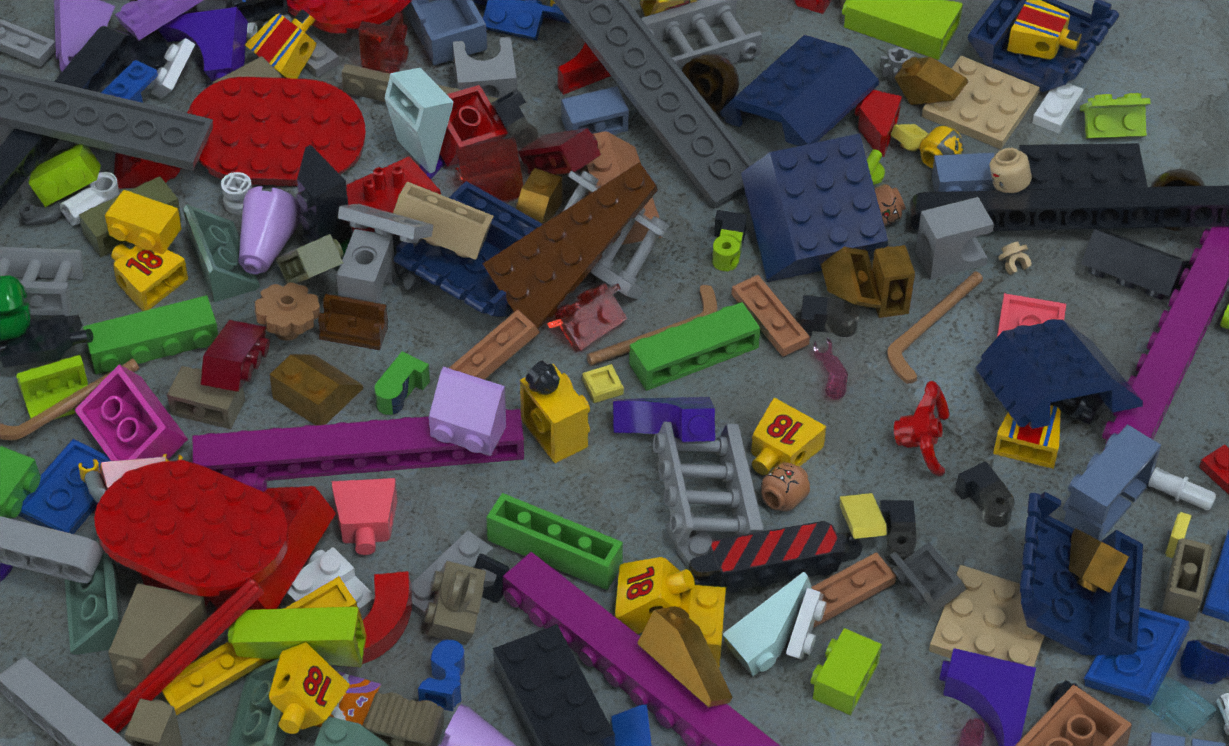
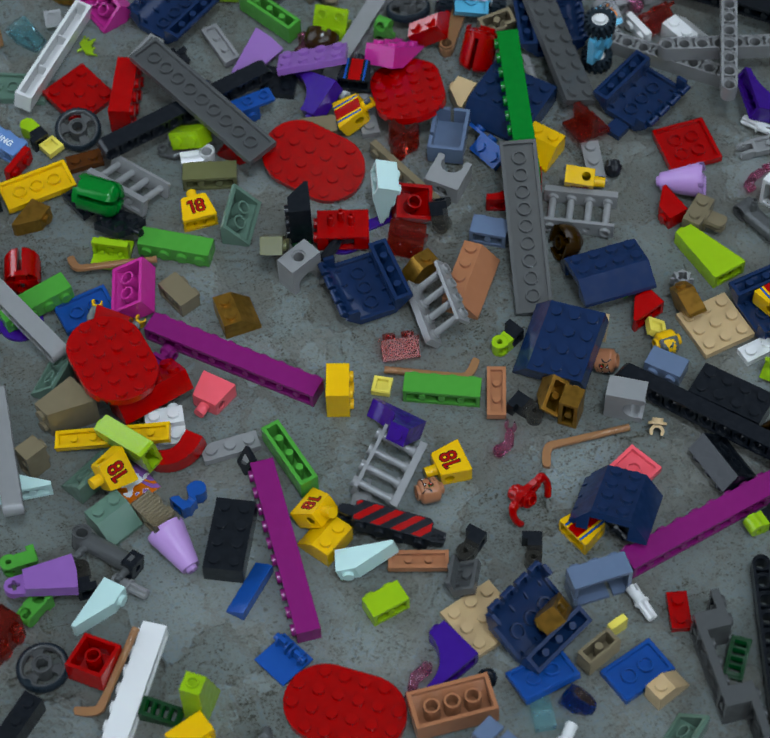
camera: 35 degrees right, 5 degrees up
(143, 221) = (206, 183): yellow brick -> none
(168, 75) = (281, 103): white plate -> none
(185, 653) = (73, 422): red axle -> none
(234, 189) = (271, 188): white wheel -> none
(234, 355) = (202, 278): dark red brick -> none
(266, 227) = (267, 216): lavender cone -> none
(287, 310) = (247, 266): medium nougat plant -> none
(353, 322) = (278, 289): reddish brown hinge -> none
(385, 222) = (320, 242): light grey plate -> none
(399, 381) = (278, 333): bright green leg -> none
(454, 223) = (353, 255): tan brick -> none
(455, 602) = (218, 464): dark tan brick -> none
(468, 411) = (288, 368): lavender slope -> none
(497, 346) = (334, 340): nougat plate -> none
(543, 378) = (334, 368): black plate -> none
(560, 151) = (446, 245): dark red brick -> none
(561, 252) = (401, 303): reddish brown wing -> none
(684, 653) = (303, 551): pearl gold slope -> none
(801, 638) = (384, 562): white plate -> none
(863, 516) = (456, 526): light yellow tile -> none
(876, 169) = (617, 336): lime plate -> none
(1010, 170) = (684, 375): tan head -> none

